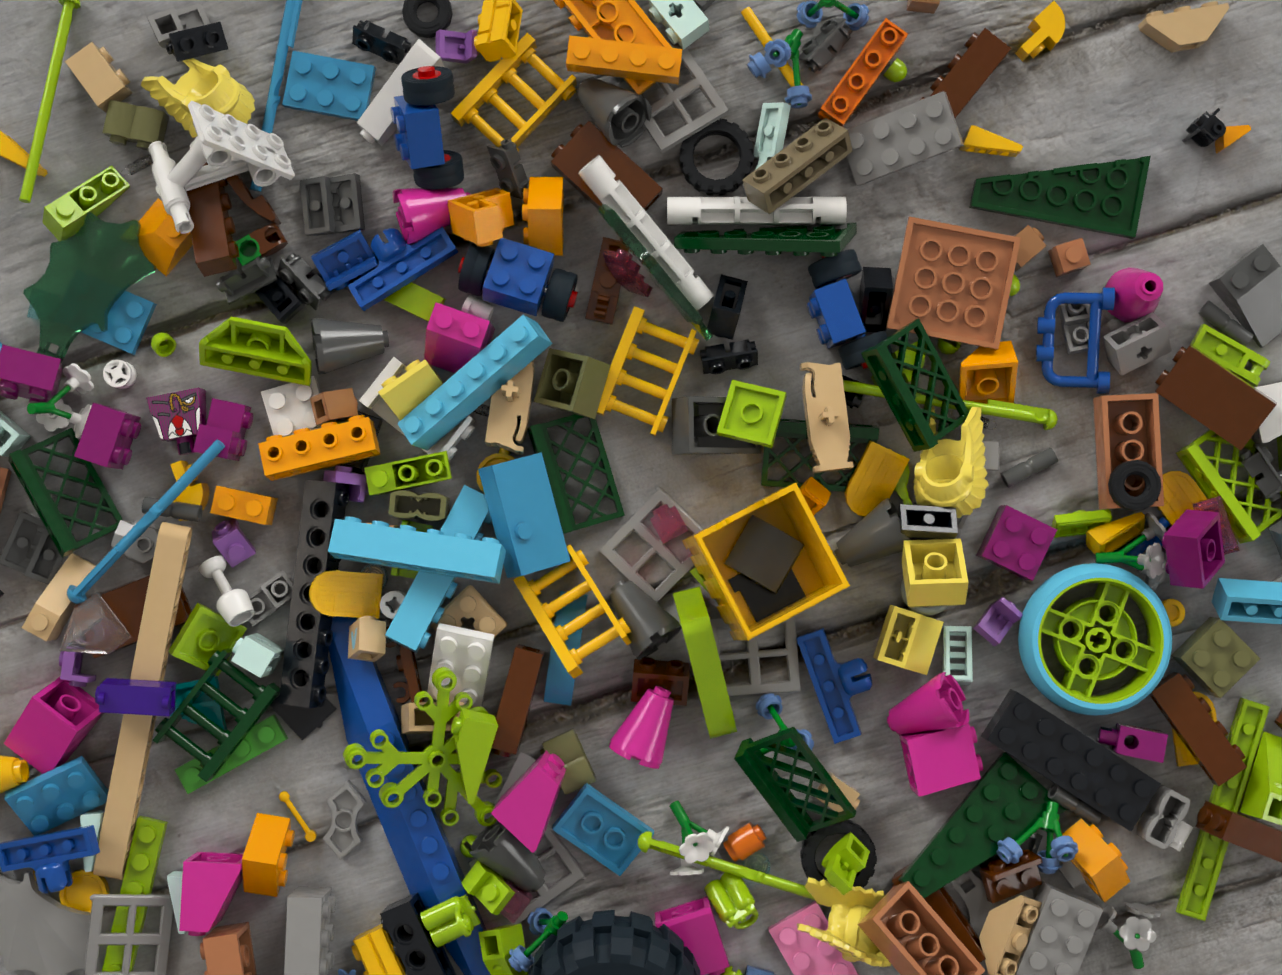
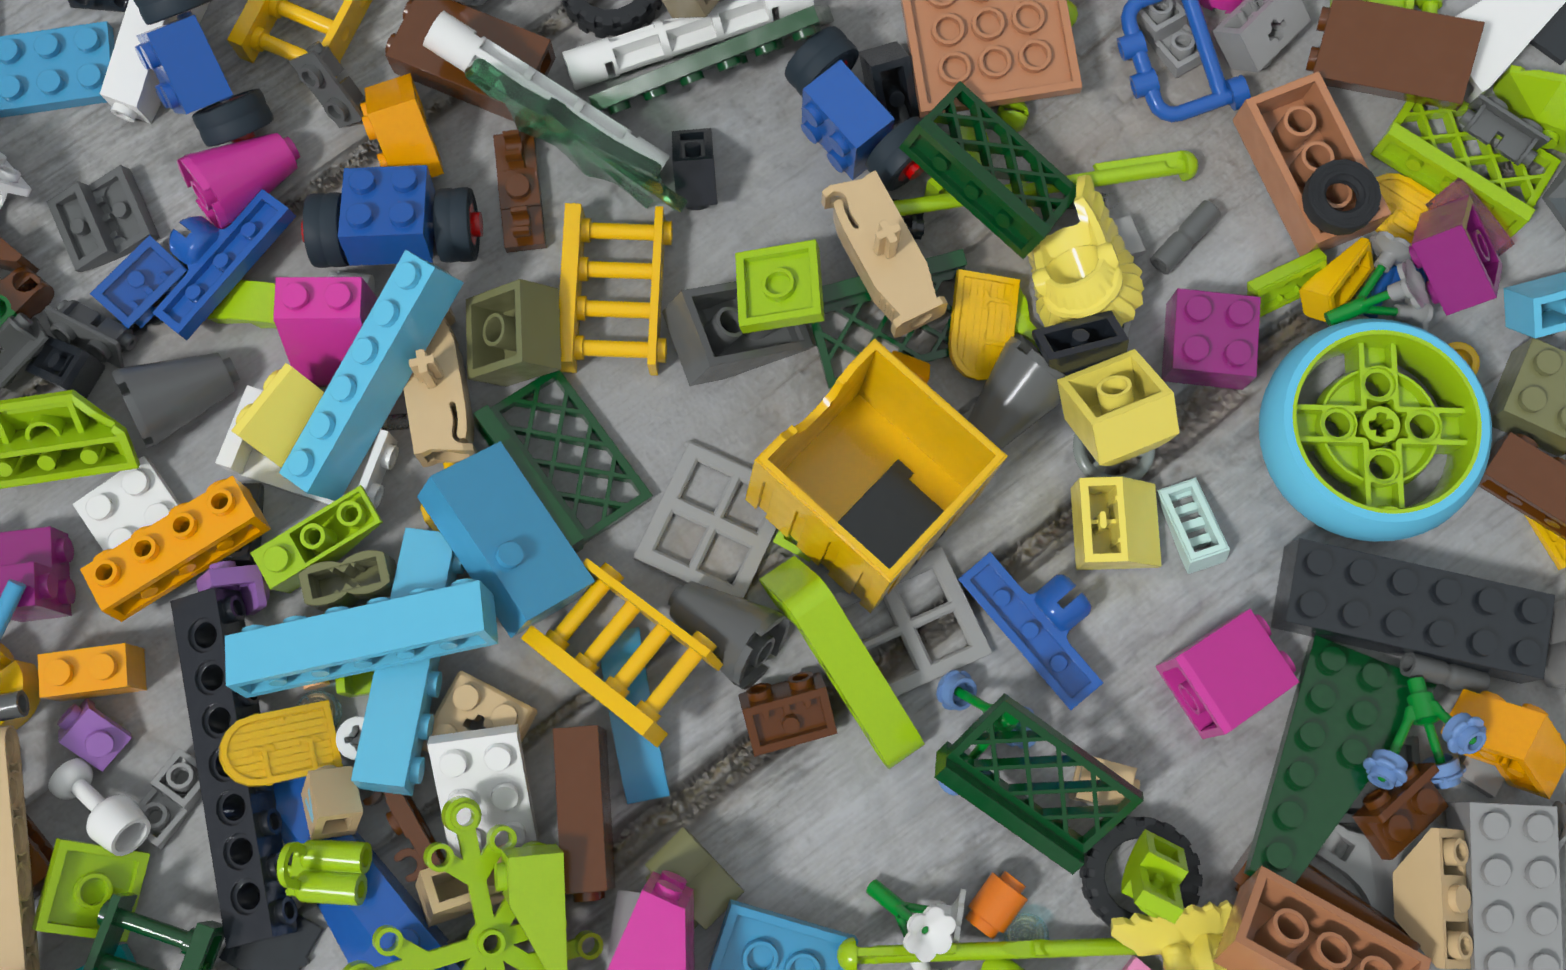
camera: 20 degrees left, 10 degrees down
(257, 654) = (171, 885): light aqua brick -> none
(334, 406) = (180, 480): medium nougat brick -> none
(352, 680) = (325, 871): none -> lime piece
(481, 216) = (310, 154): light orange brick -> none
(626, 272) = (534, 160): clear pink slope -> none
(645, 729) = (789, 785): dark pink cone -> none
(668, 523) = (717, 480): clear pink brick -> none
(742, 357) = (736, 226): black hinge -> none
(764, 554) = (868, 473): dark grey slope -> none
(930, 708) = (1185, 607): dark pink cone -> none
(989, 374) = (1084, 129): light orange slope -> none
(997, 620) = (1229, 453): medium lavender bracket -> none
(1146, 743) = (1503, 546): magenta torso -> none

